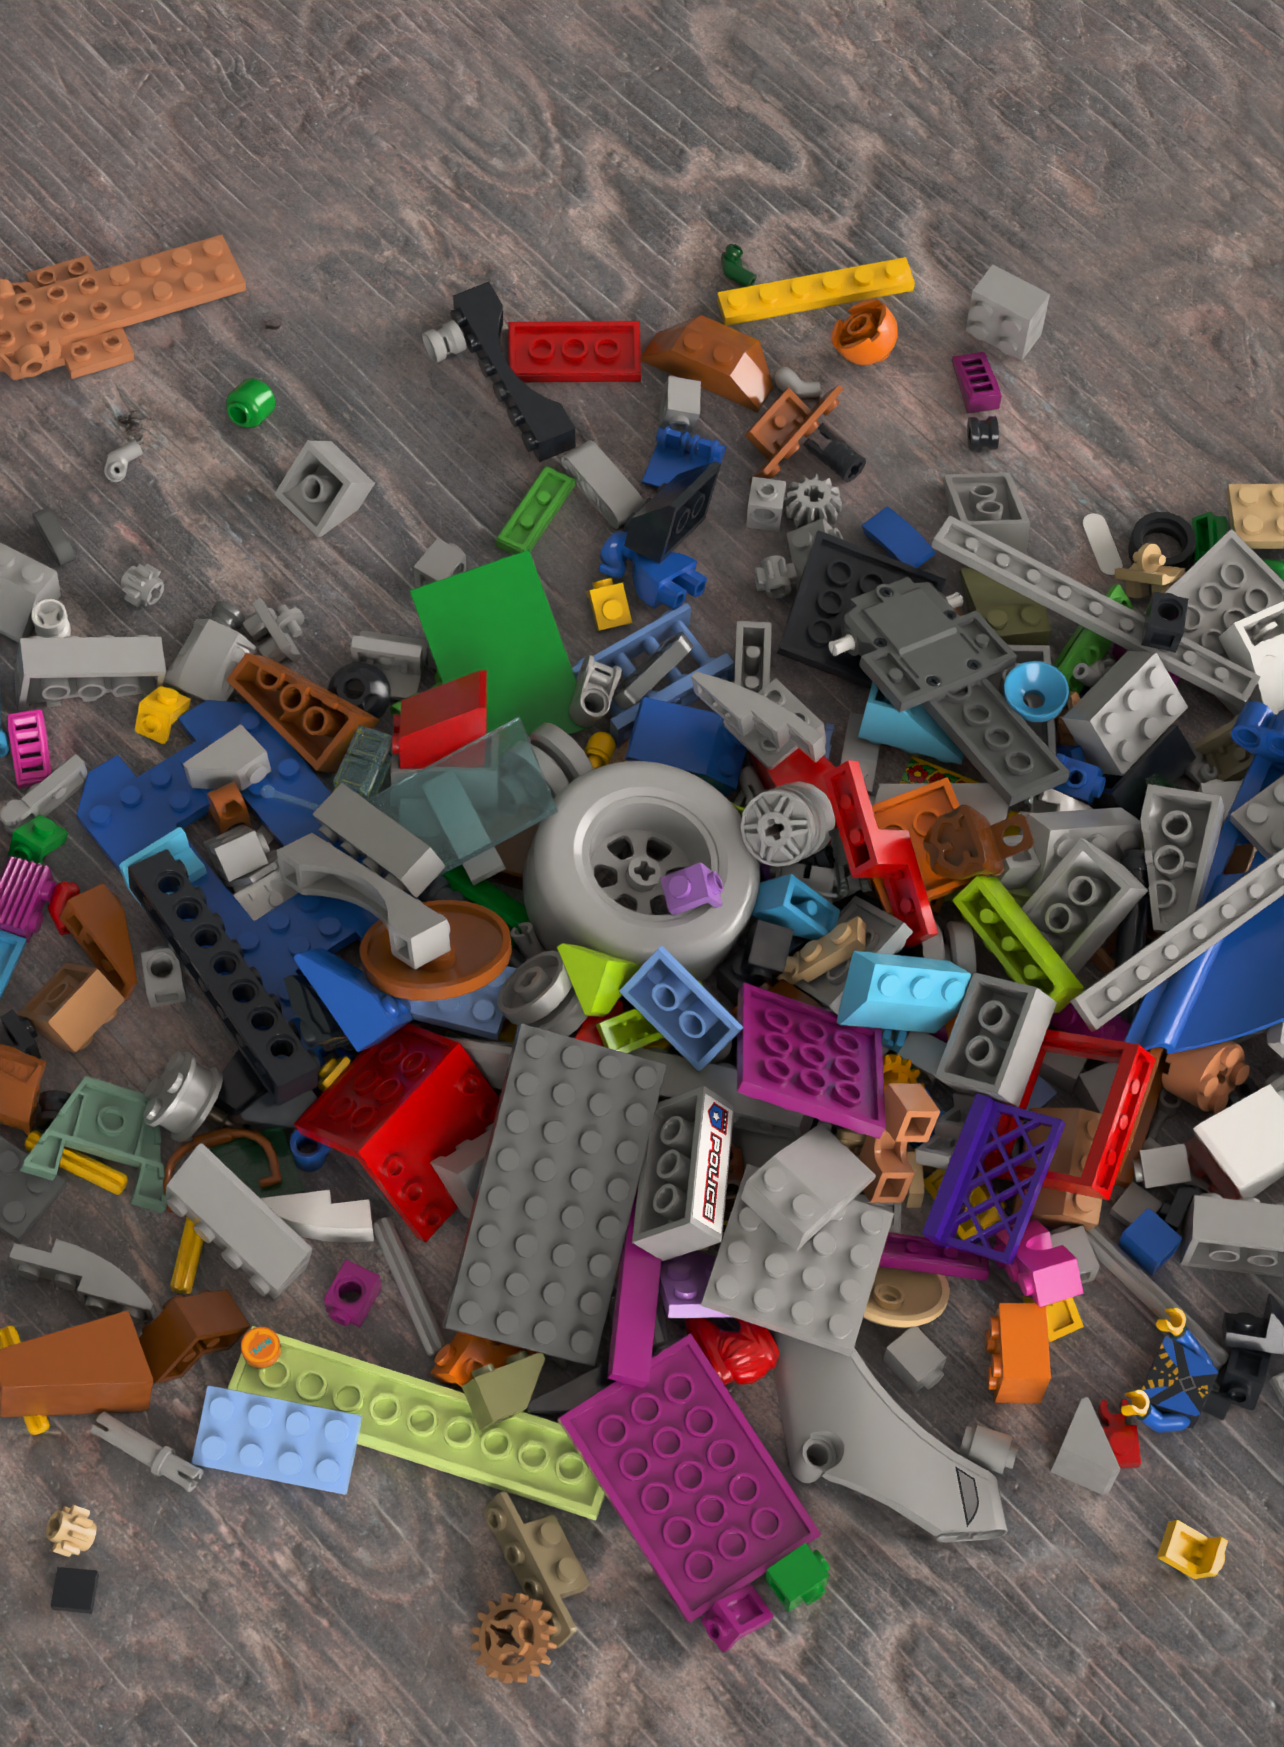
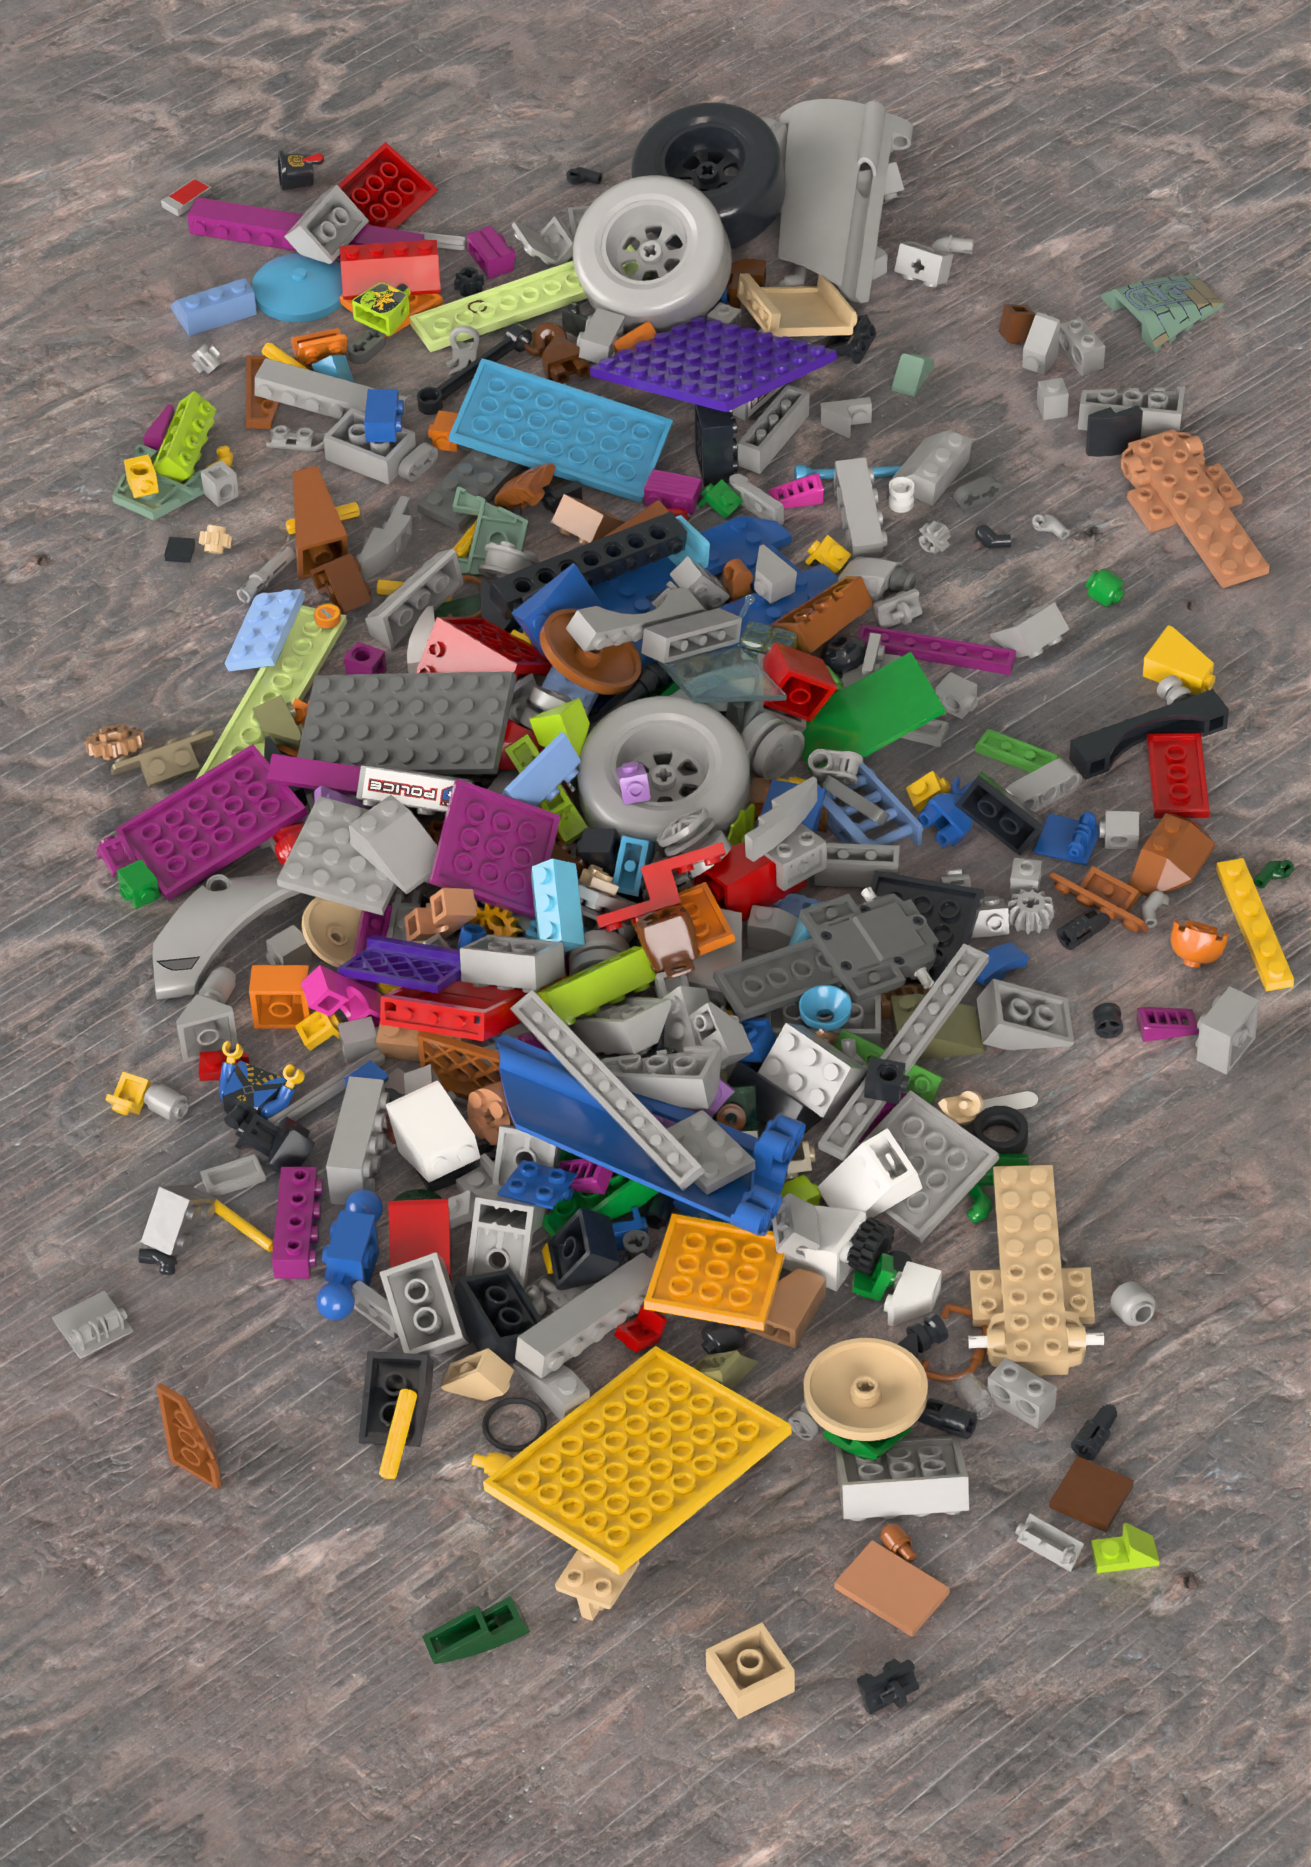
camera: 95 degrees right, 15 degrees down
(140, 528) = (990, 538): none -> black arm
(344, 595) = (943, 650): none -> magenta tile
(390, 335) = (1177, 656): none -> yellow slope
(1110, 797) = (719, 1029): none -> light grey slope
(1199, 1498) = (166, 1102): none -> light grey brick

